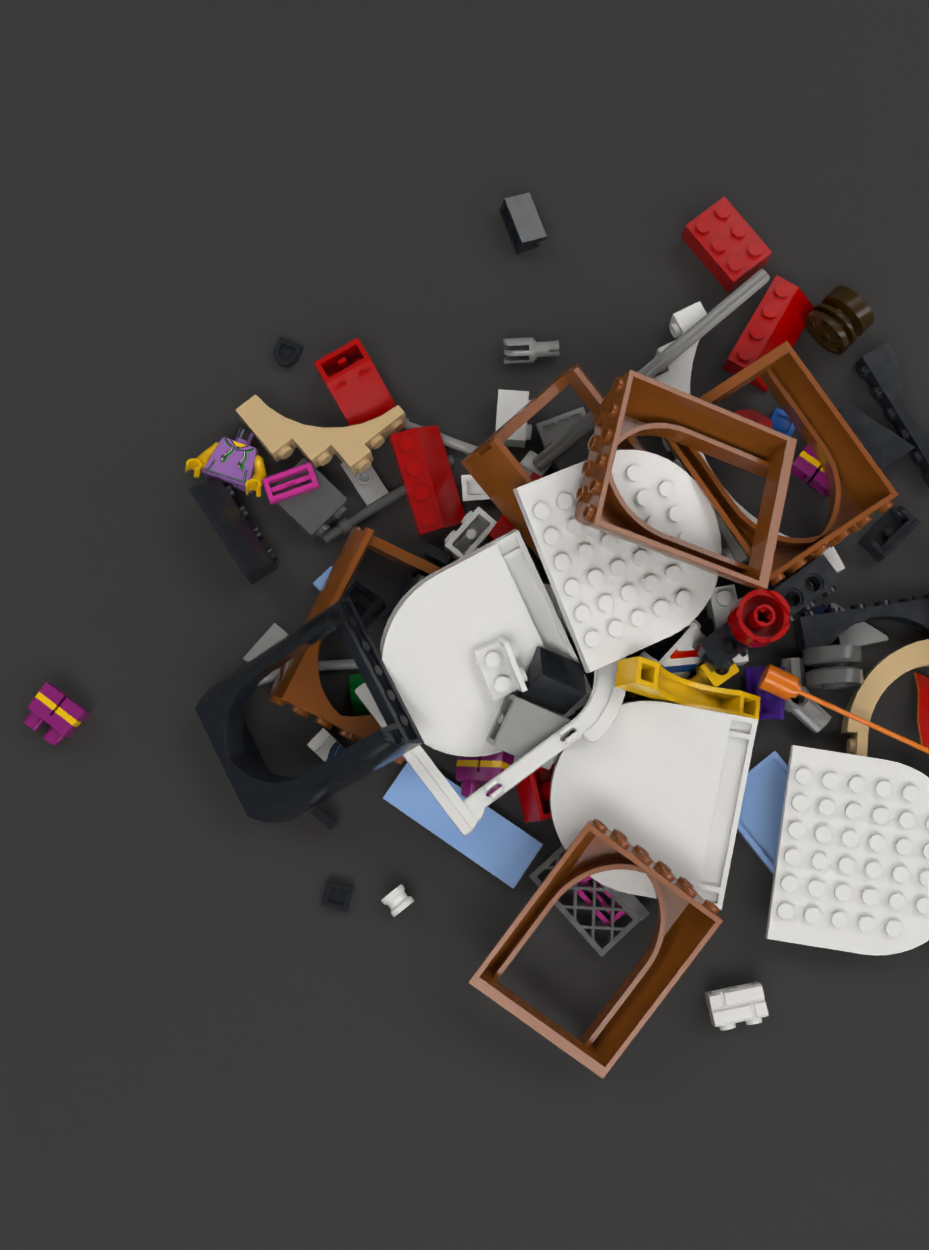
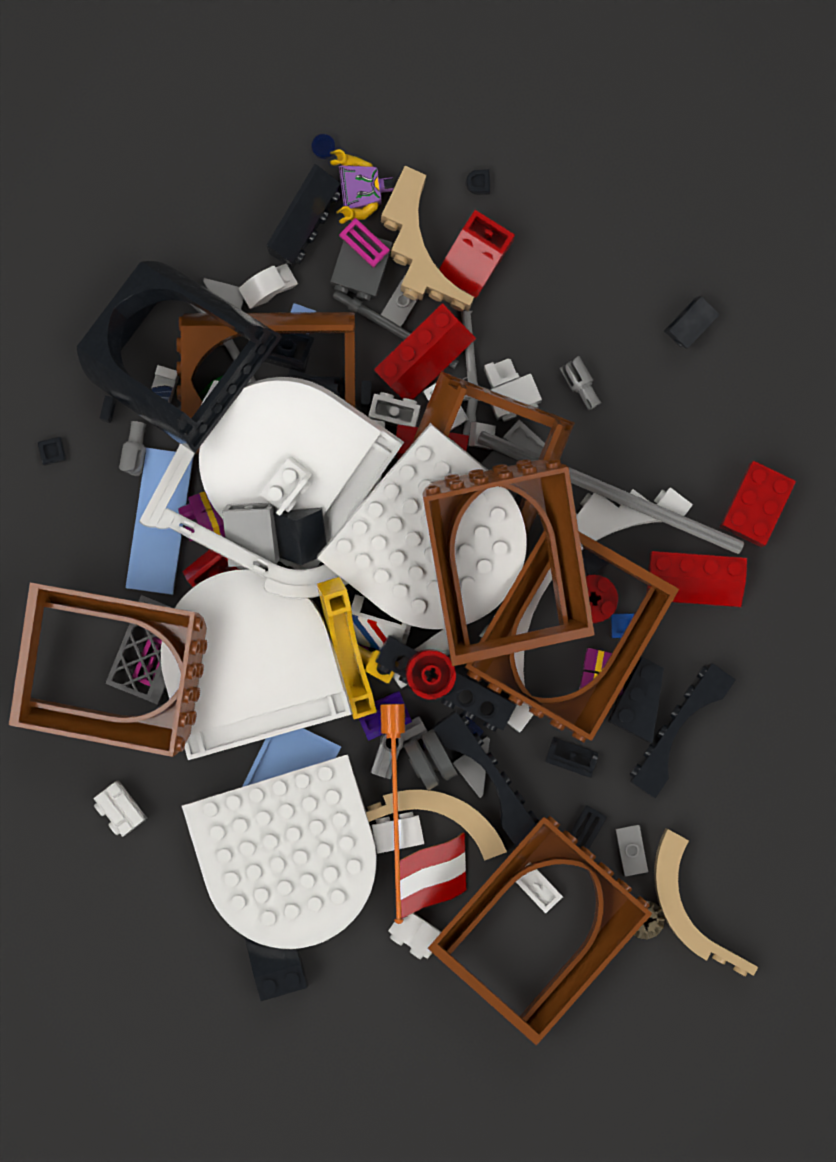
camera: 65 degrees right, 5 degrees up
(58, 711) = (88, 152): magenta hips -> none
(174, 481) = (323, 146): none -> clear blue tile
(282, 599) = (267, 284): none -> white brick
(379, 811) = (134, 450): none -> light grey arm
(397, 900) = (71, 500): white wheel -> none
(482, 421) = (500, 373): none -> white panel
(839, 319) = (734, 629): dark brown wheel -> none
(884, 746) = (409, 832): none -> white brick

